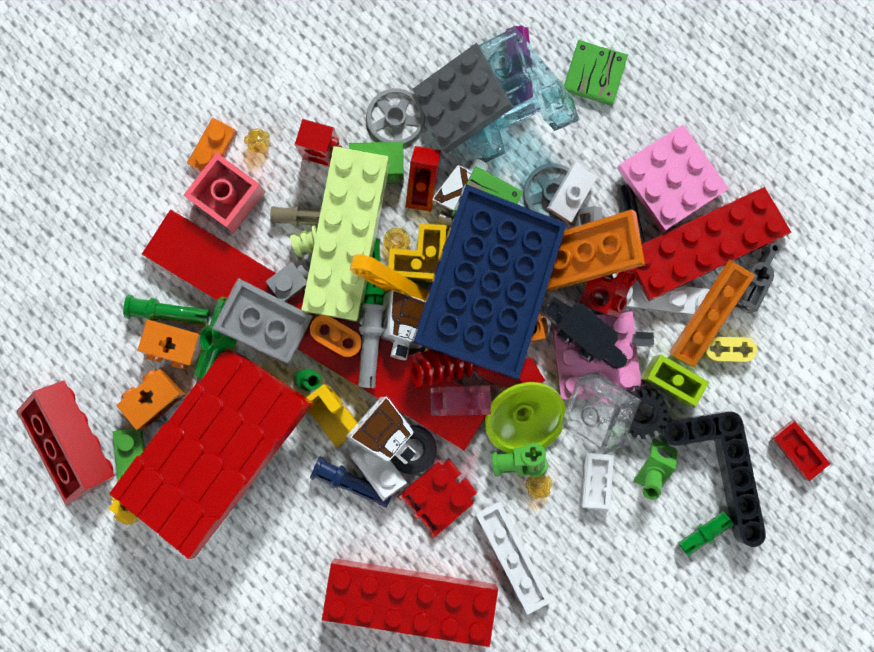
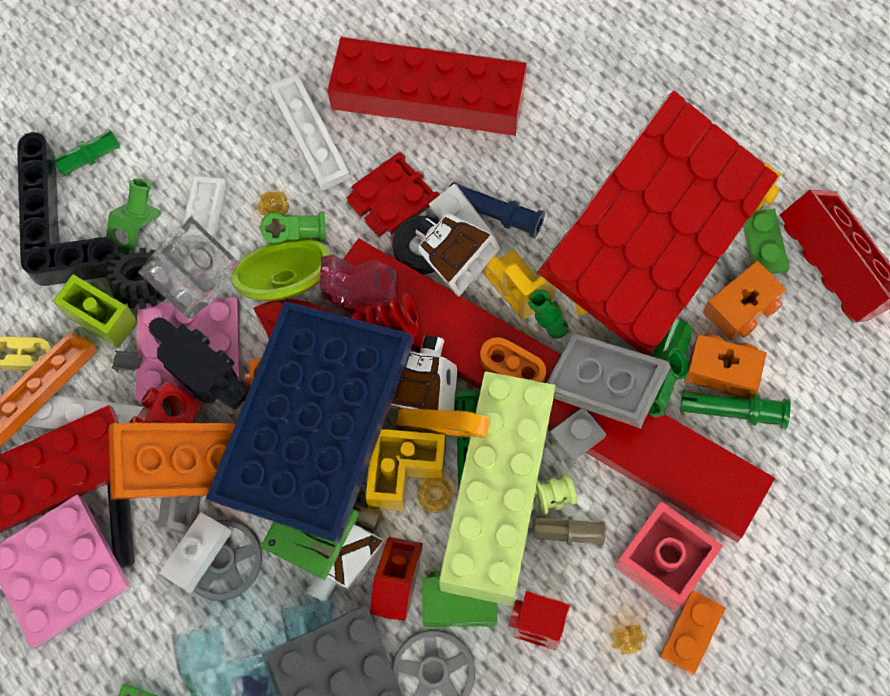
camera: 175 degrees left, 15 degrees down
(371, 331) = (468, 367): light grey pin -> none

